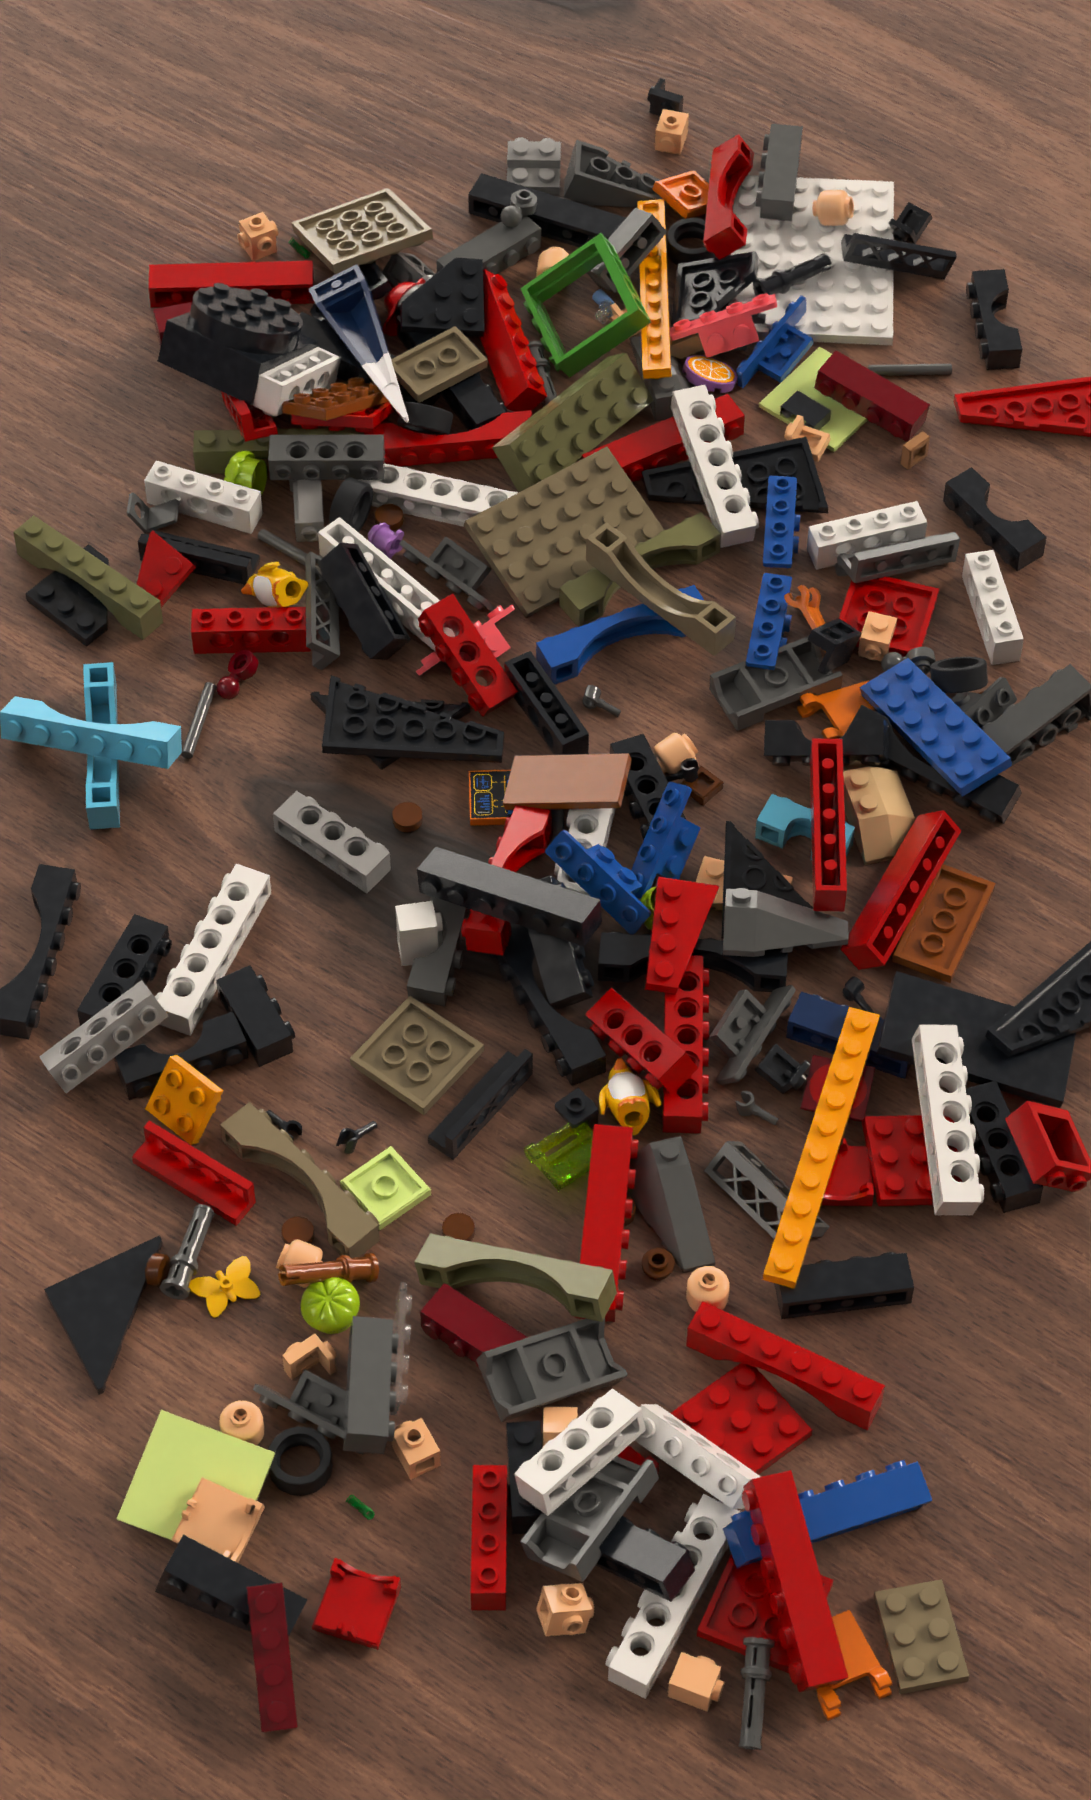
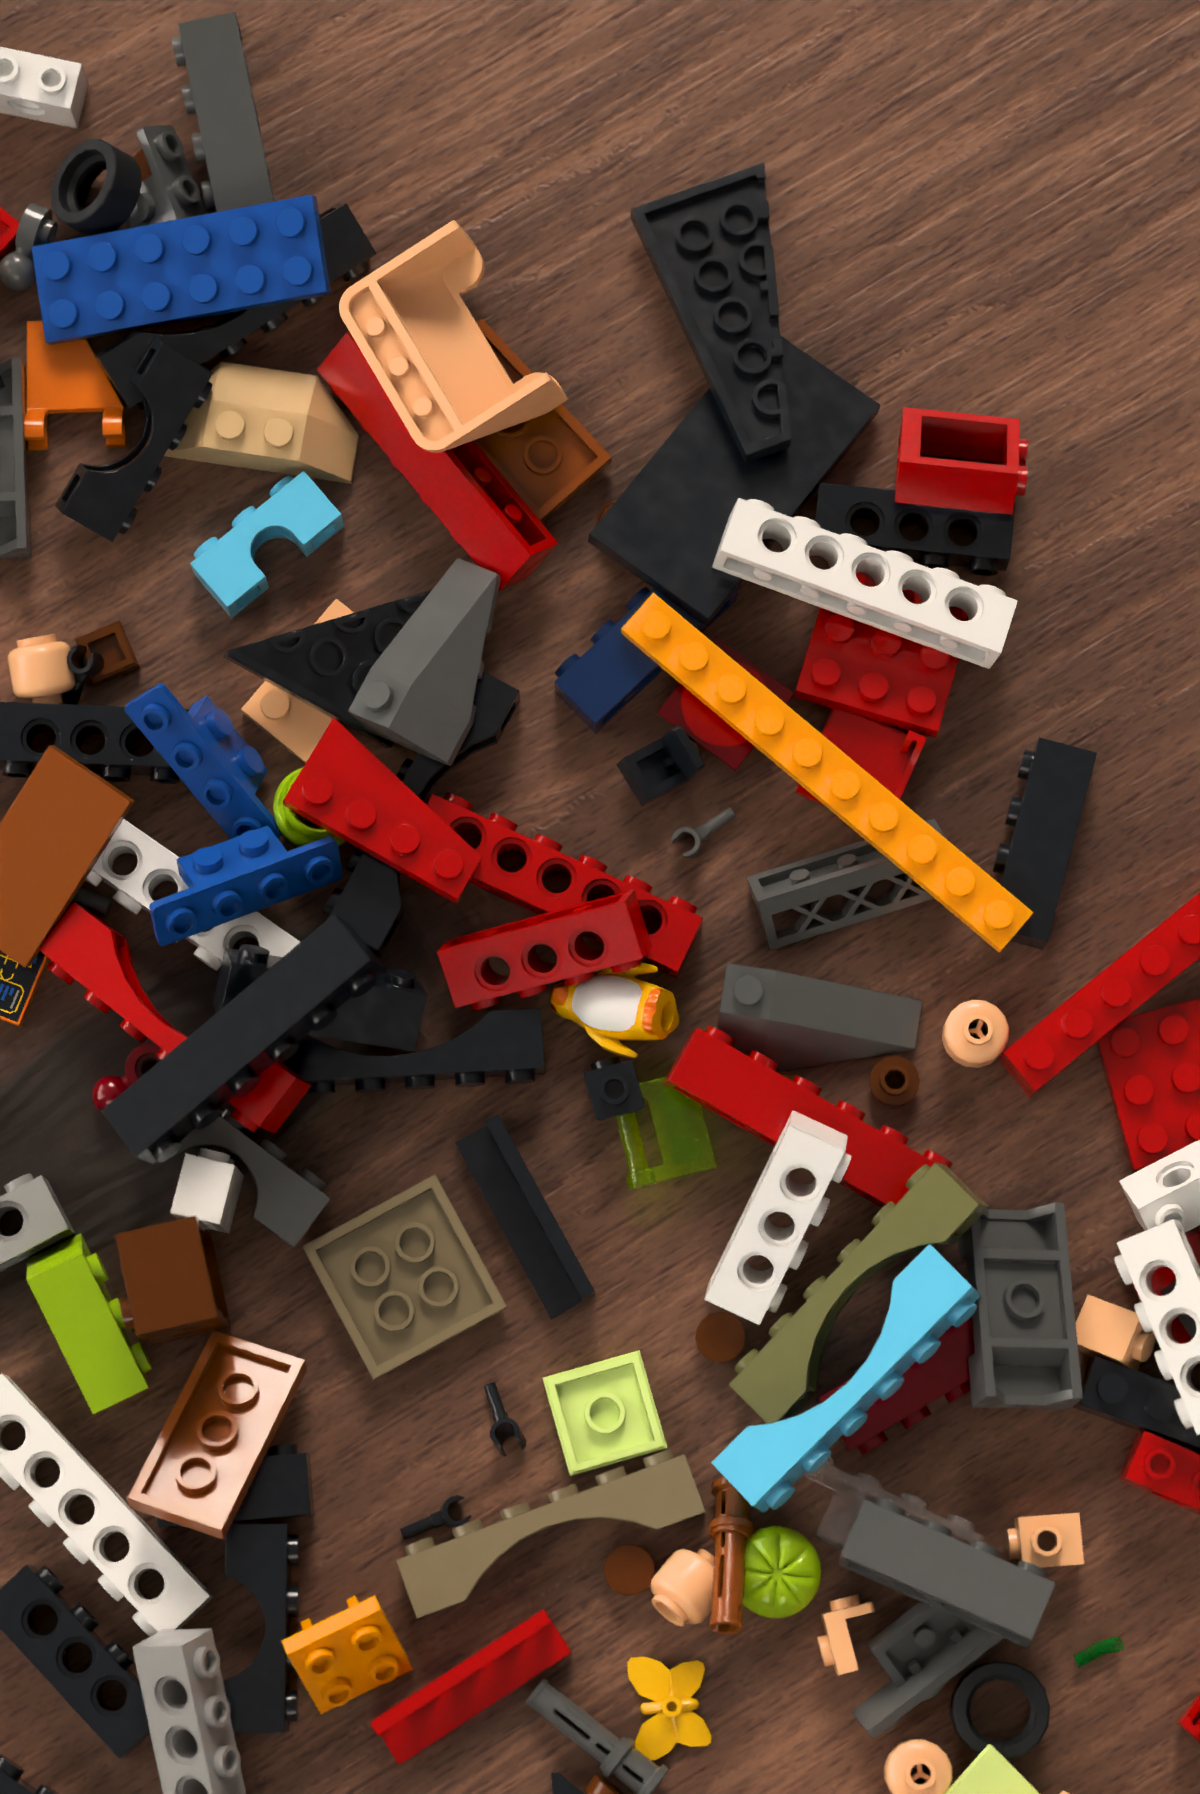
camera: 65 degrees left, 25 degrees up
(282, 986) = (217, 1434): none -> plate
(317, 907) = (87, 1323): none -> lime wedge
(353, 928) = (171, 1281): none -> reddish brown piece
(516, 1300) = (773, 1456): none -> medium azure arch
(555, 1204) = (800, 1145): none -> white brick
(745, 1029) = (573, 784): dark grey bracket -> none
(828, 825) = (302, 511): red brick -> none
(852, 991) = (565, 606): black hand -> none
(963, 855) = (432, 349): none -> light nougat windscreen

